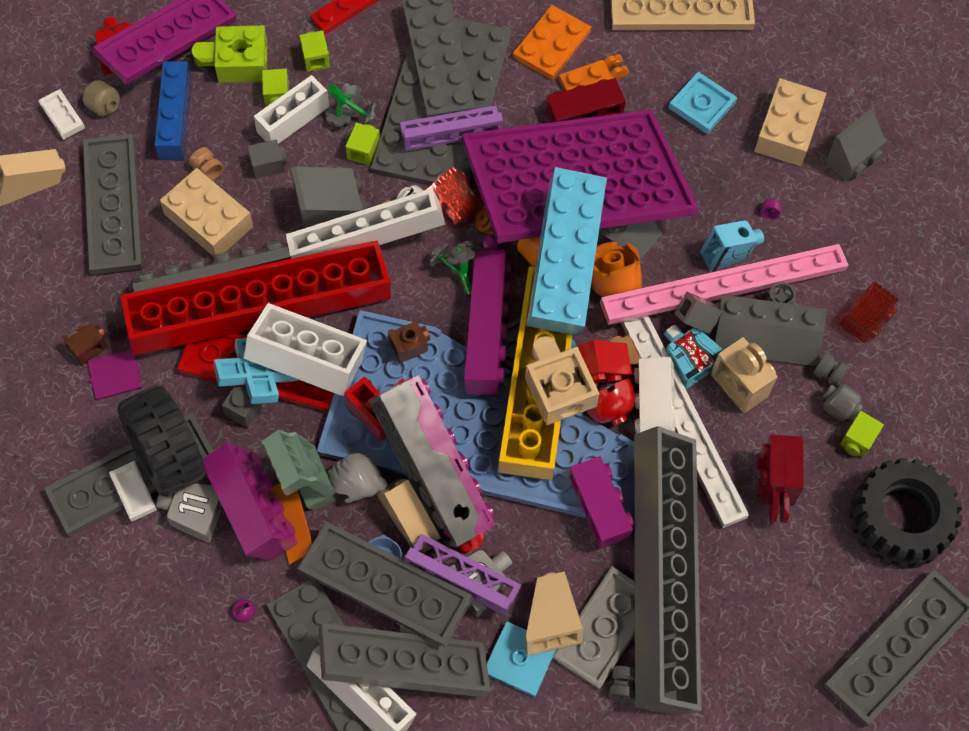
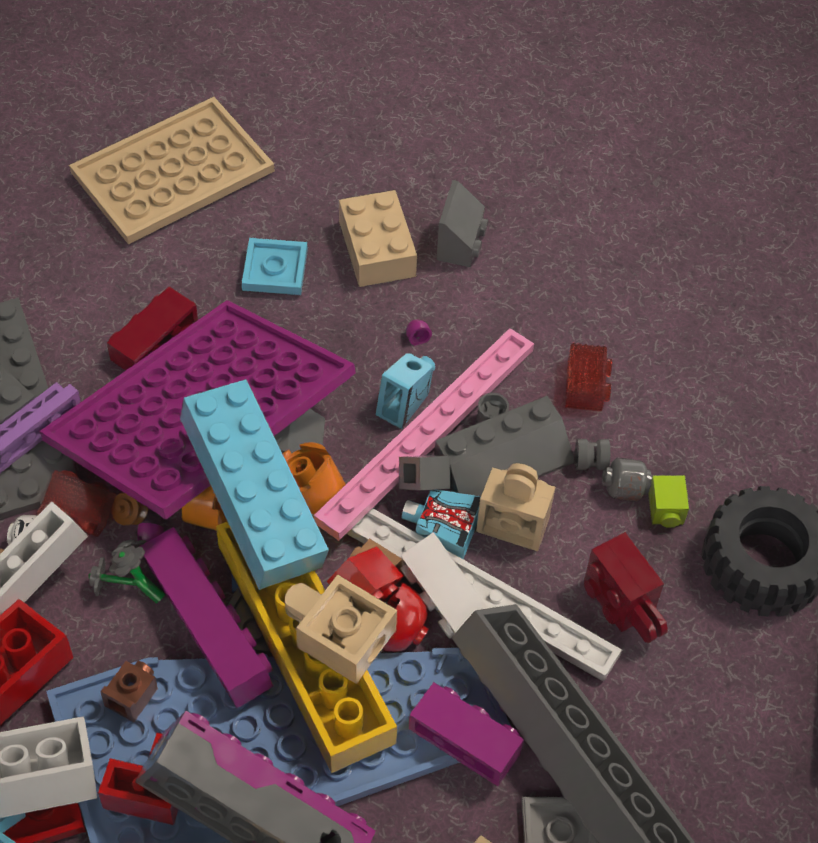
camera: 35 degrees left, 10 degrees down
(552, 42) = (71, 289): orange plate -> none
(594, 72) = (138, 296): orange hinge -> none

